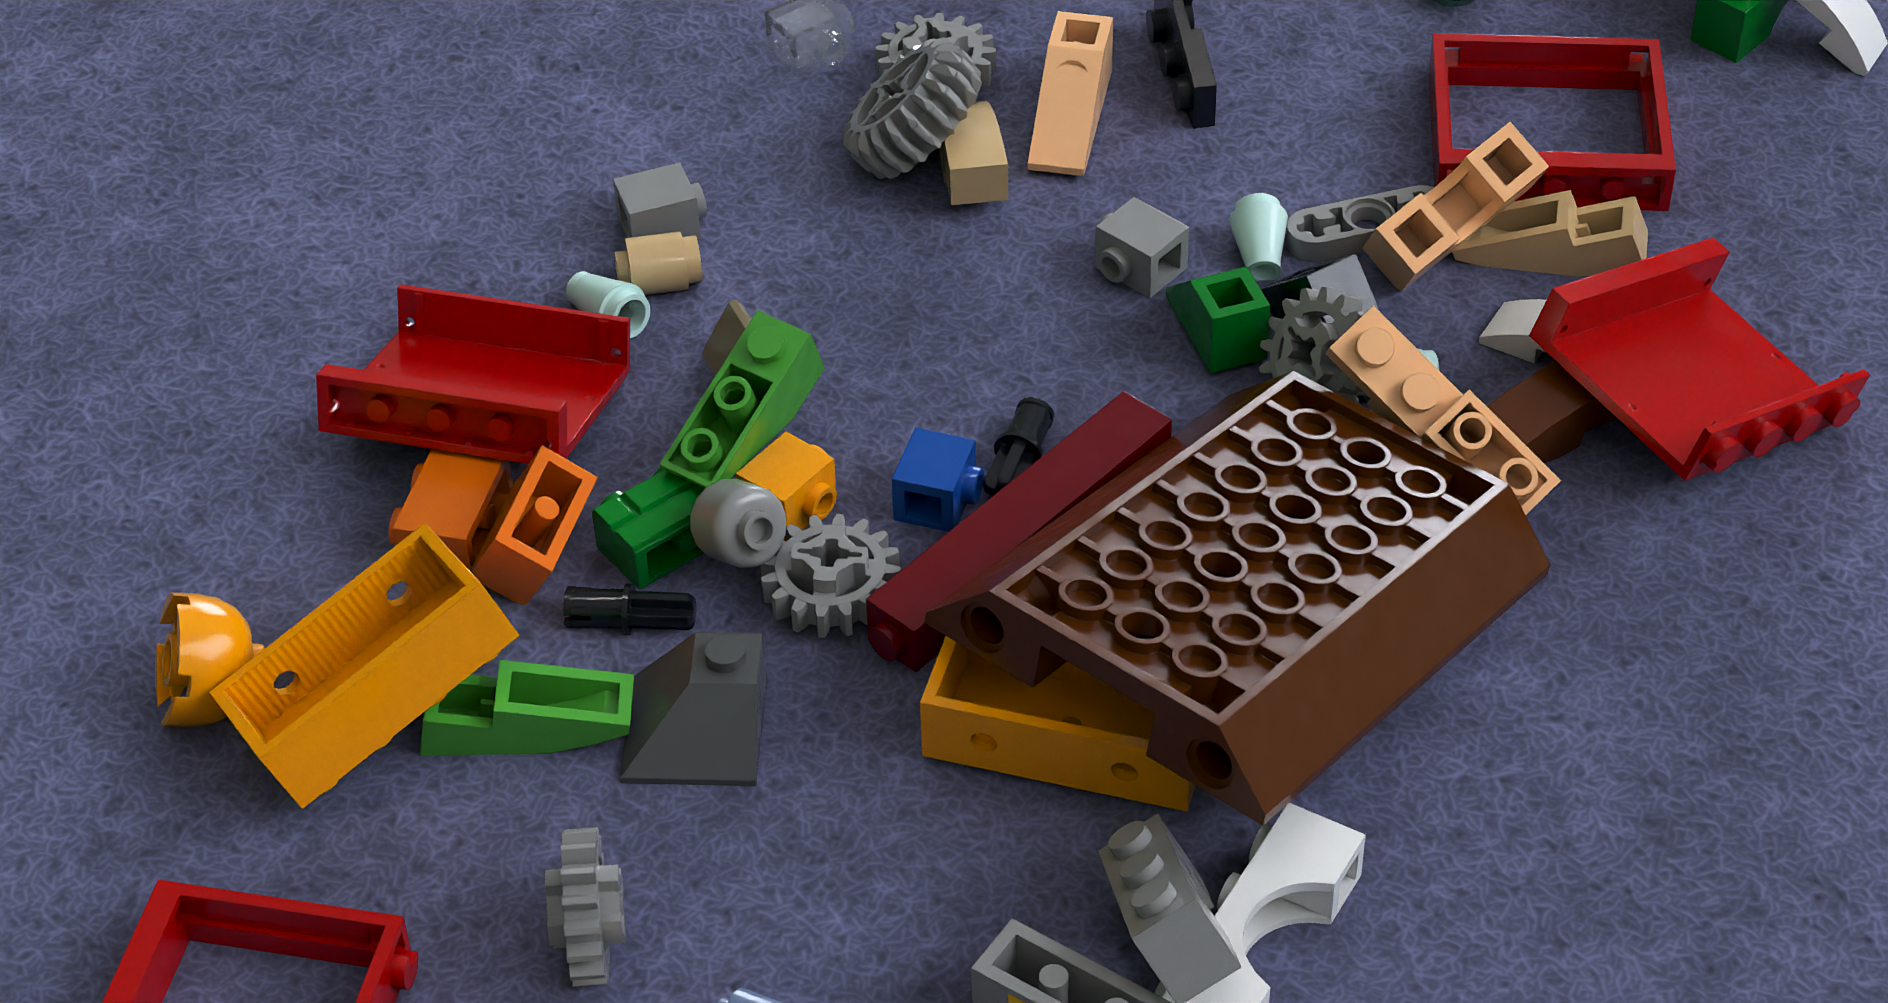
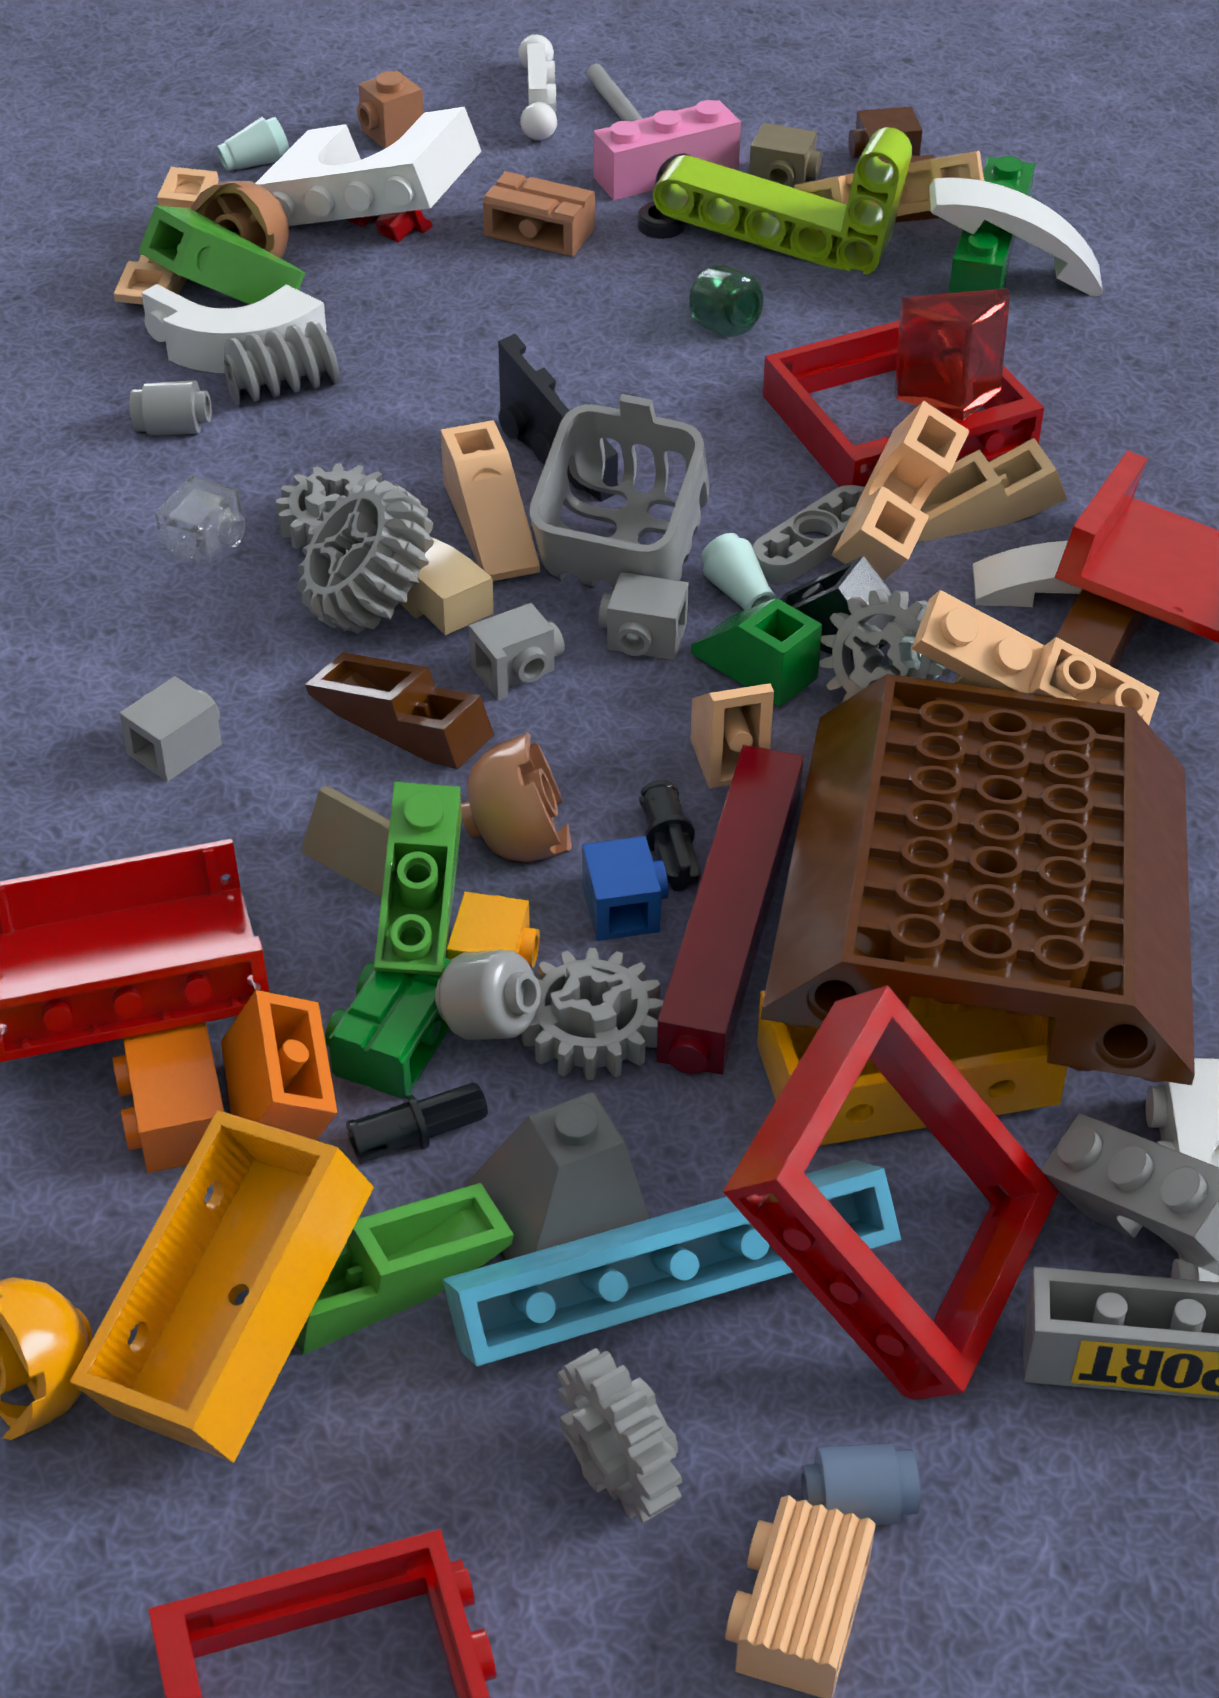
camera: 30 degrees left, 0 degrees up
(609, 297) = (179, 828): light aqua cone -> none
(660, 262) = (209, 779): tan brick -> none
(738, 796) = (642, 1269): none -> medium azure brick
(831, 848) = (827, 1254): none -> red window
(867, 258) = (404, 707): none -> reddish brown slope
(892, 361) = (515, 803): none -> nougat cylinder
(1000, 237) = (514, 648): none -> light grey brick
(1129, 365) = (726, 722): none -> light nougat slope
(1206, 163) = (582, 448): none -> light grey piece
(1598, 82) = (952, 350): none -> clear red slope

